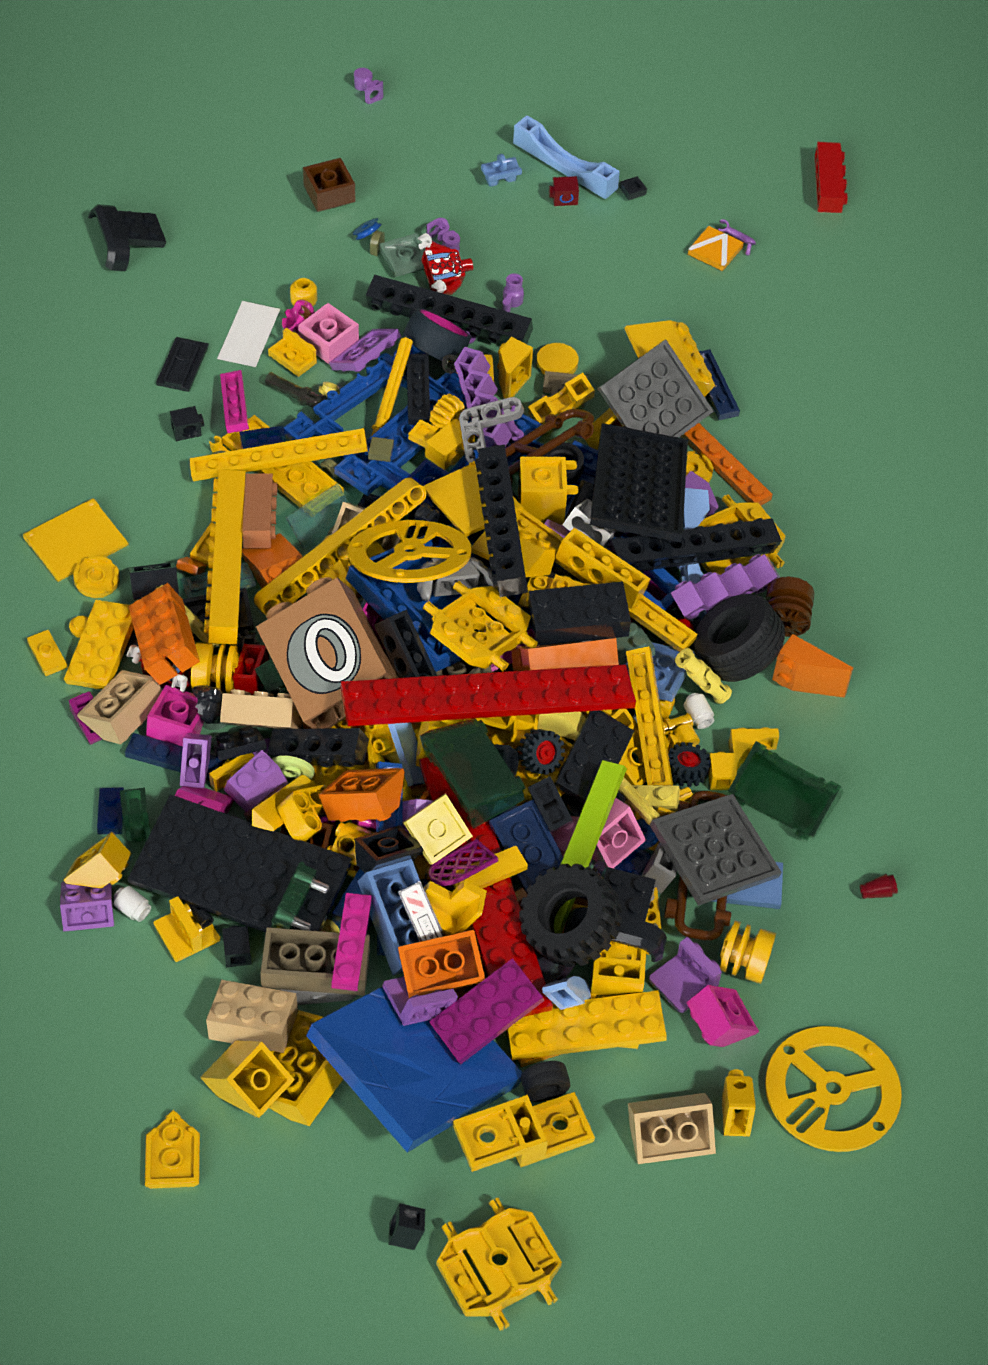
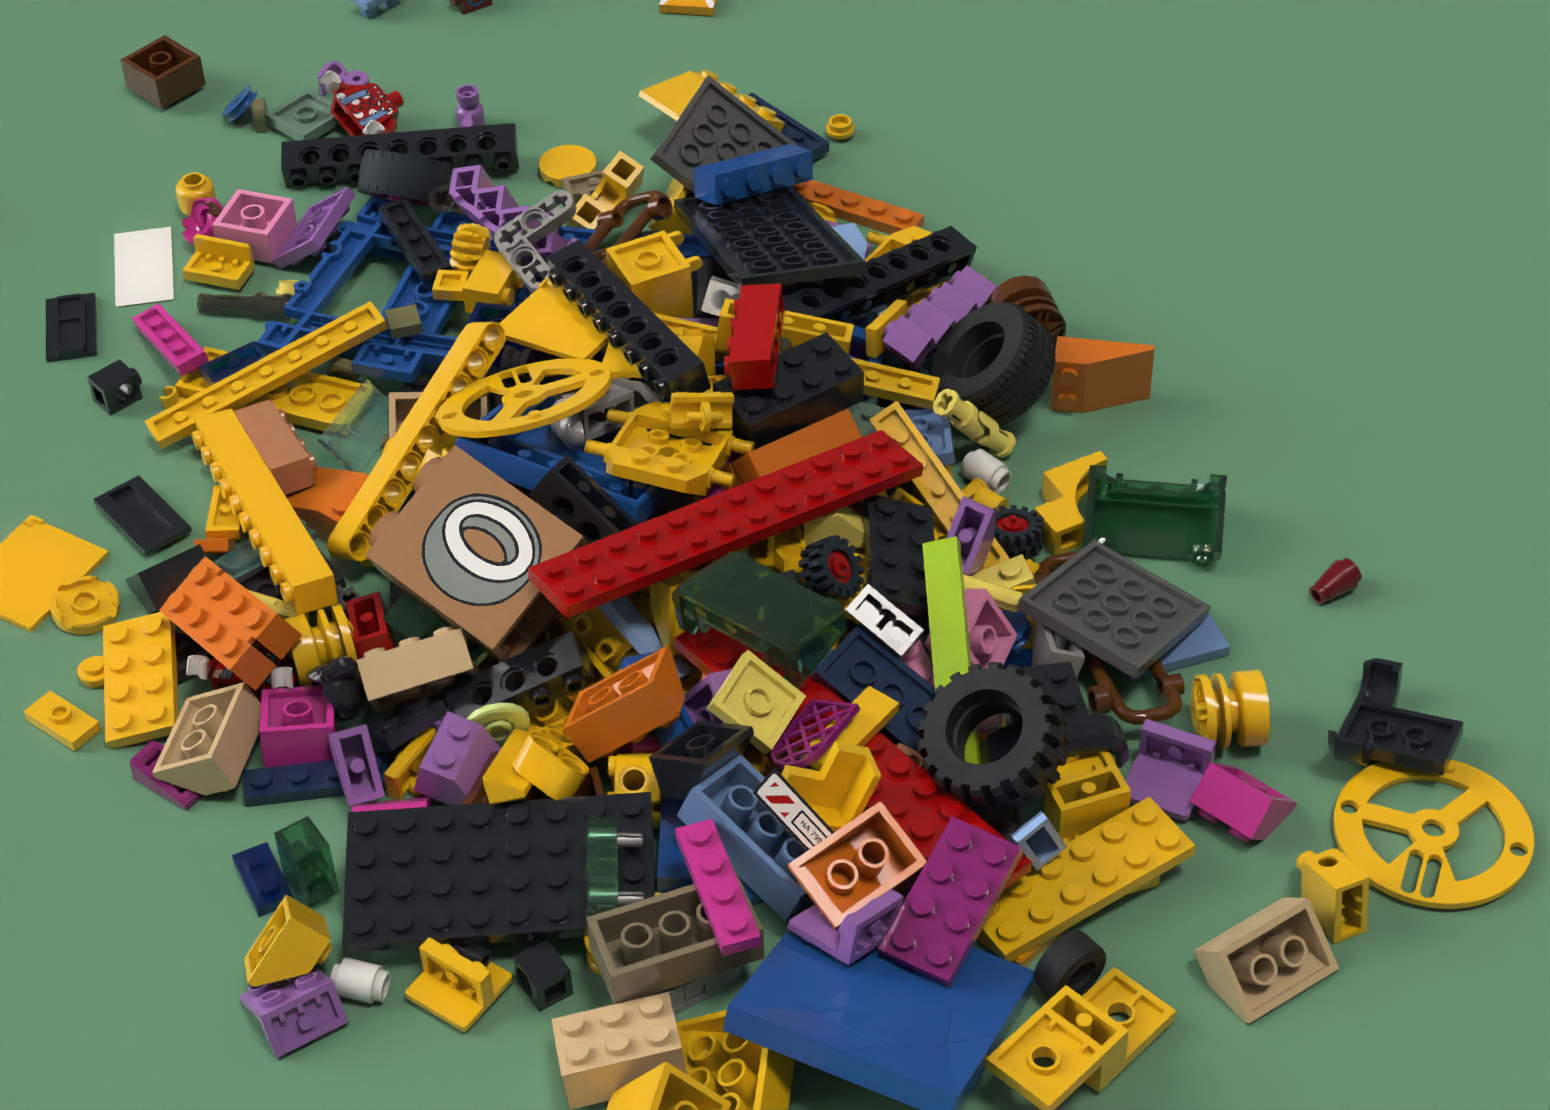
camera: 20 degrees left, 10 degrees down
(159, 525) = (142, 515): none -> black piece
(393, 384) = (377, 245): yellow axle -> none
(510, 608) = (701, 410): none -> yellow hips
(514, 366) = (520, 173): yellow slope -> none
(571, 569) = (755, 337): none -> red brick
(644, 764) = (975, 530): none -> medium lavender slope
(663, 424) = (753, 174): none -> blue brick
(692, 574) = (874, 331): none -> yellow tile
(756, 400) = (840, 127): none -> yellow plate
(846, 1010) = (1389, 733): none -> black piece

